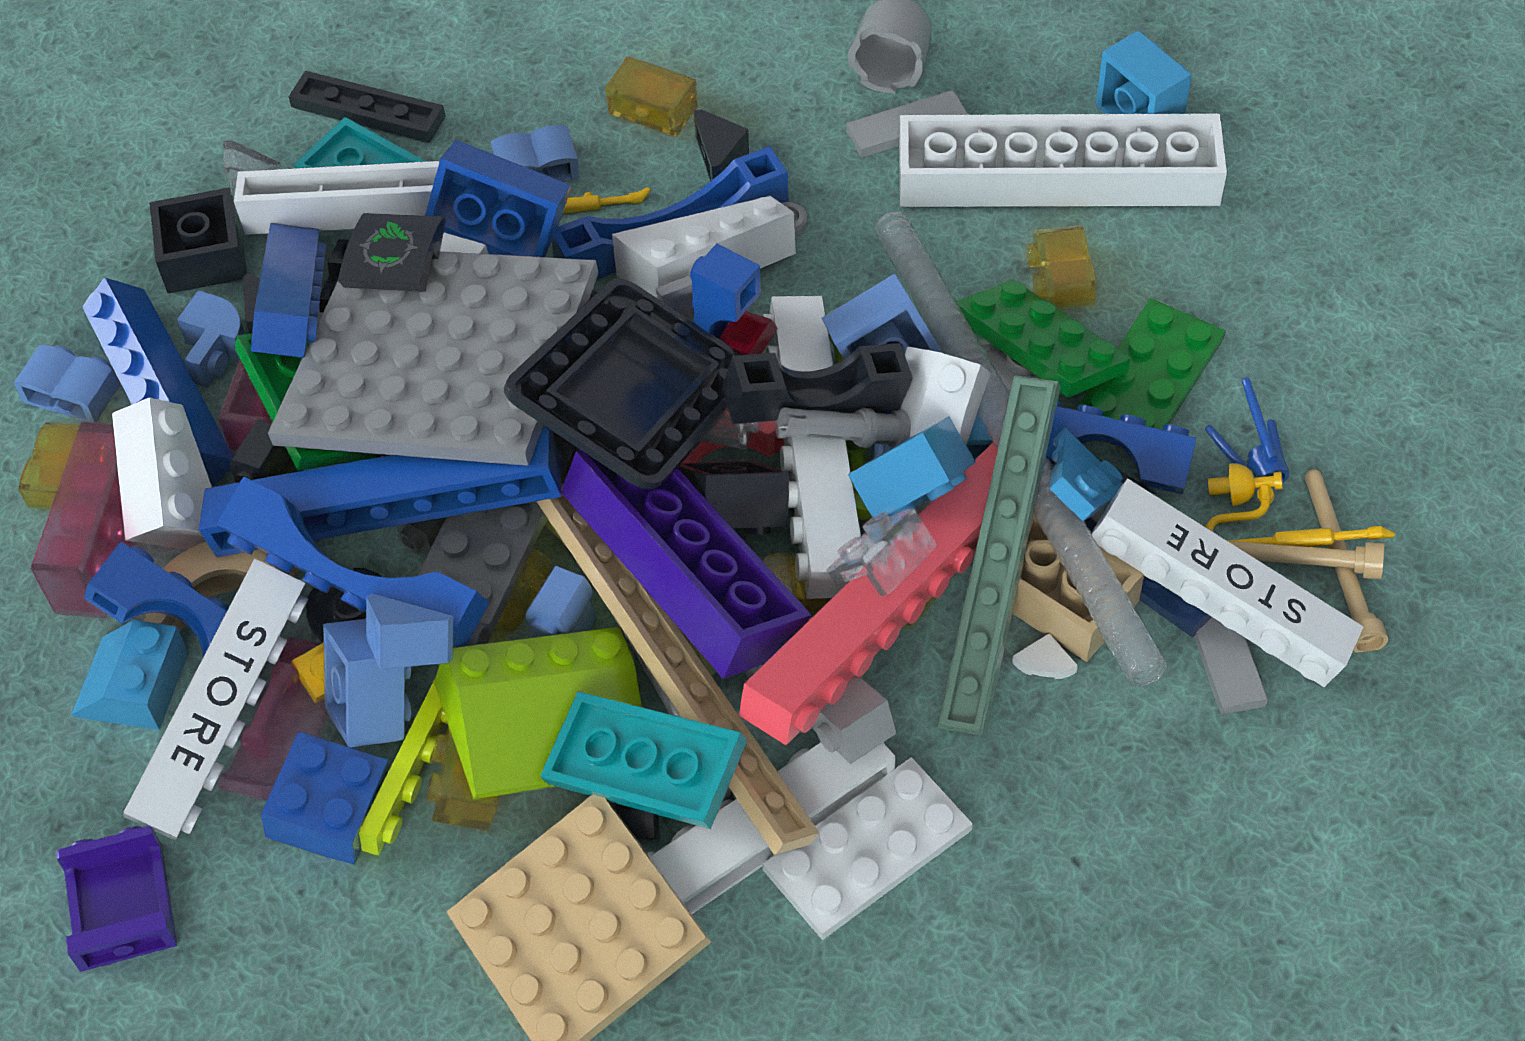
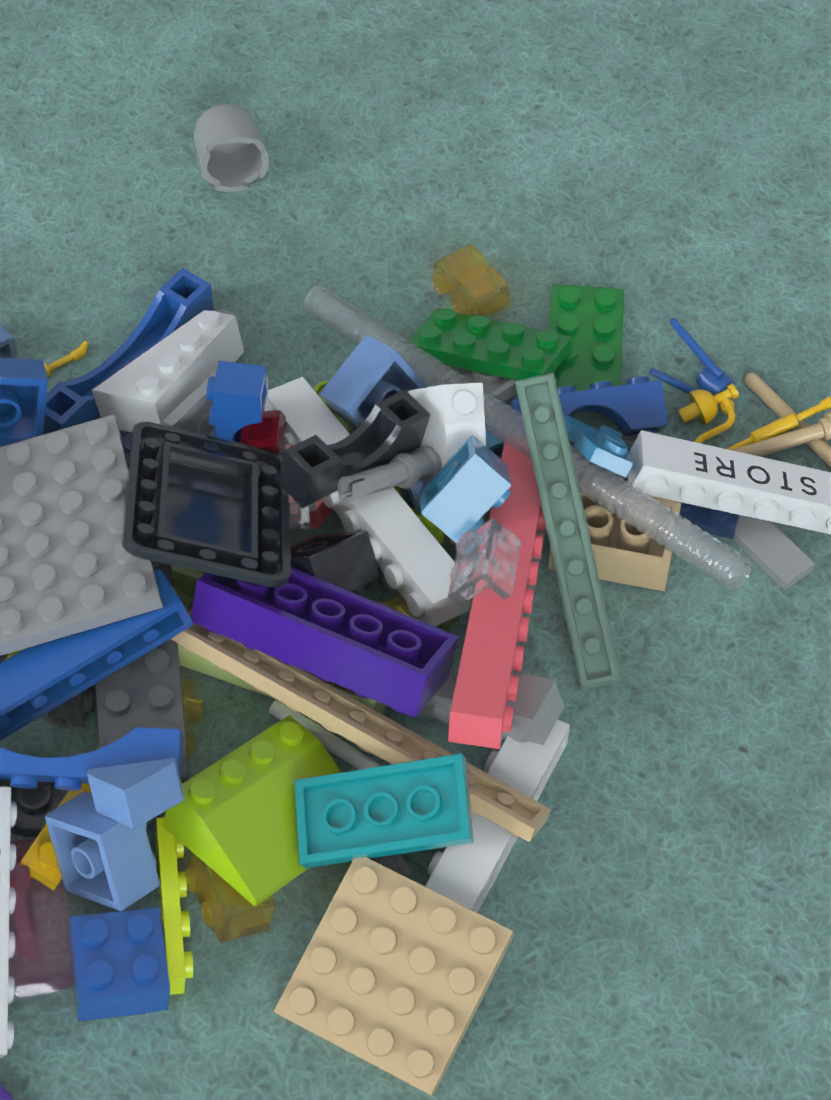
camera: 30 degrees left, 0 degrees up
(562, 605) = (232, 718): medium blue brick -> none
(651, 96) = (46, 261): clear yellow brick -> none
(719, 141) = (127, 282): black slope -> none
(868, 848) = (588, 802): white plate -> none
(882, 129) = (274, 210): light grey tile -> none
(1045, 659) = (633, 602): white tile -> none
(1061, 160) = (420, 197): white brick -> none
(1141, 79) = (457, 116): dark azure brick -> none

